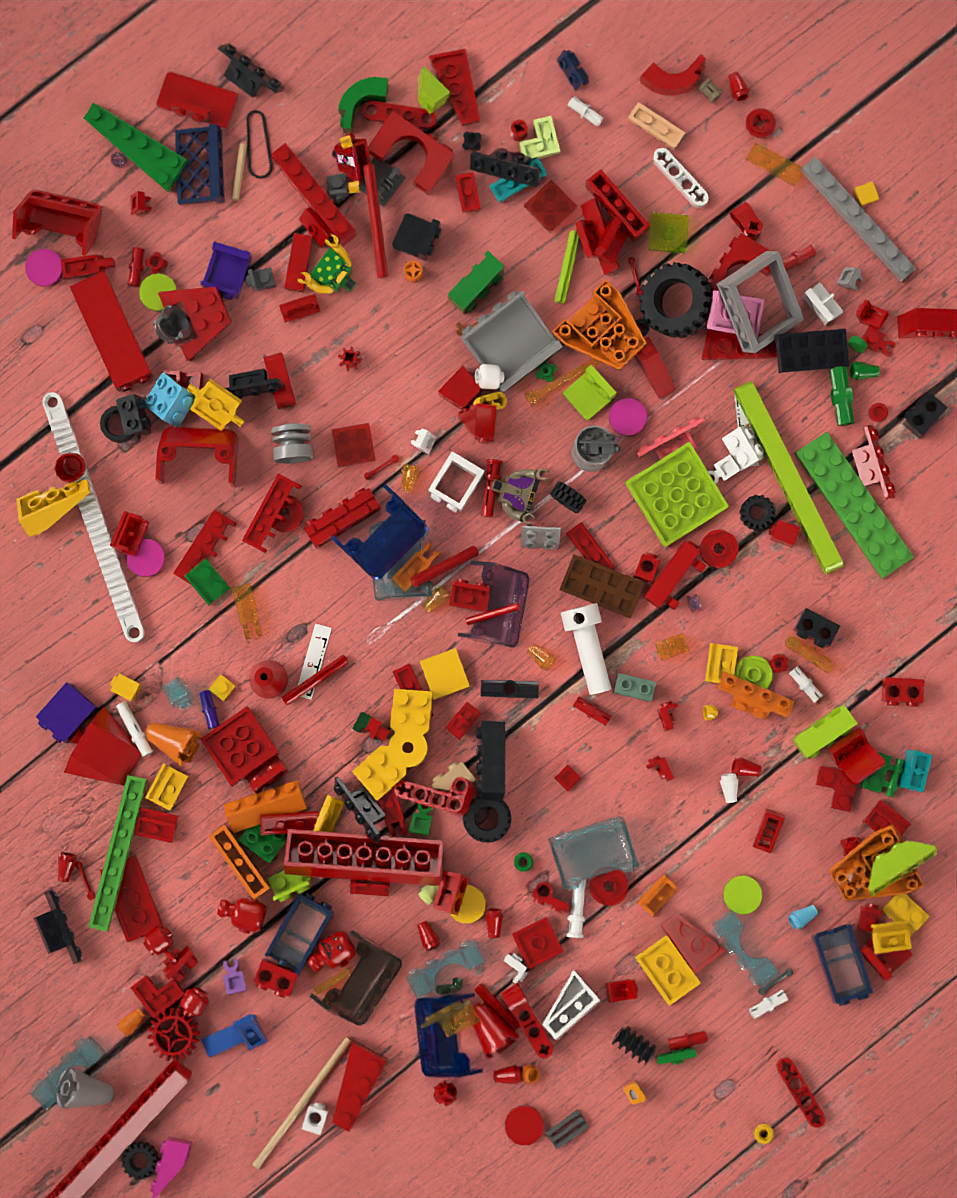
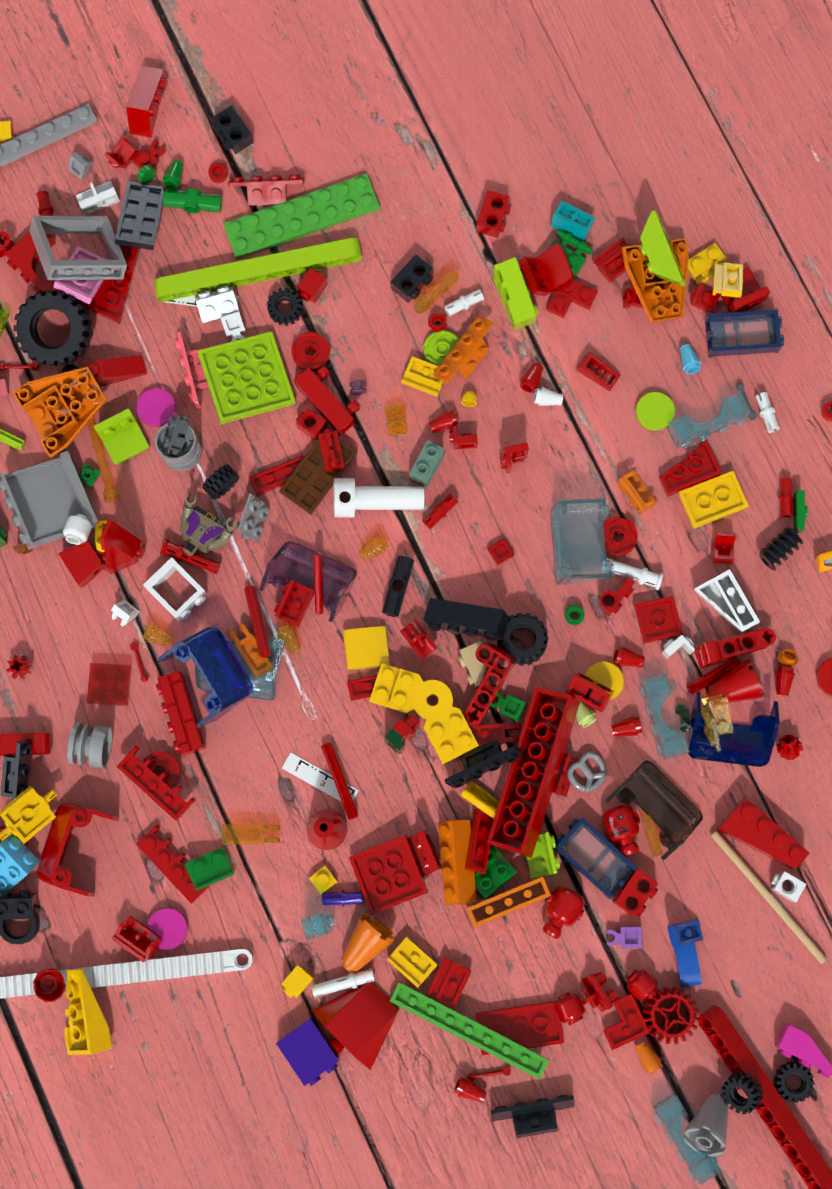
camera: 75 degrees left, 5 degrees down
(124, 1119) = (735, 1099): none -> black tyre
(377, 908) = (587, 772): none -> light grey piece
(623, 593) = (331, 450): none -> red hinge
(681, 694) = (444, 421): none -> red cone

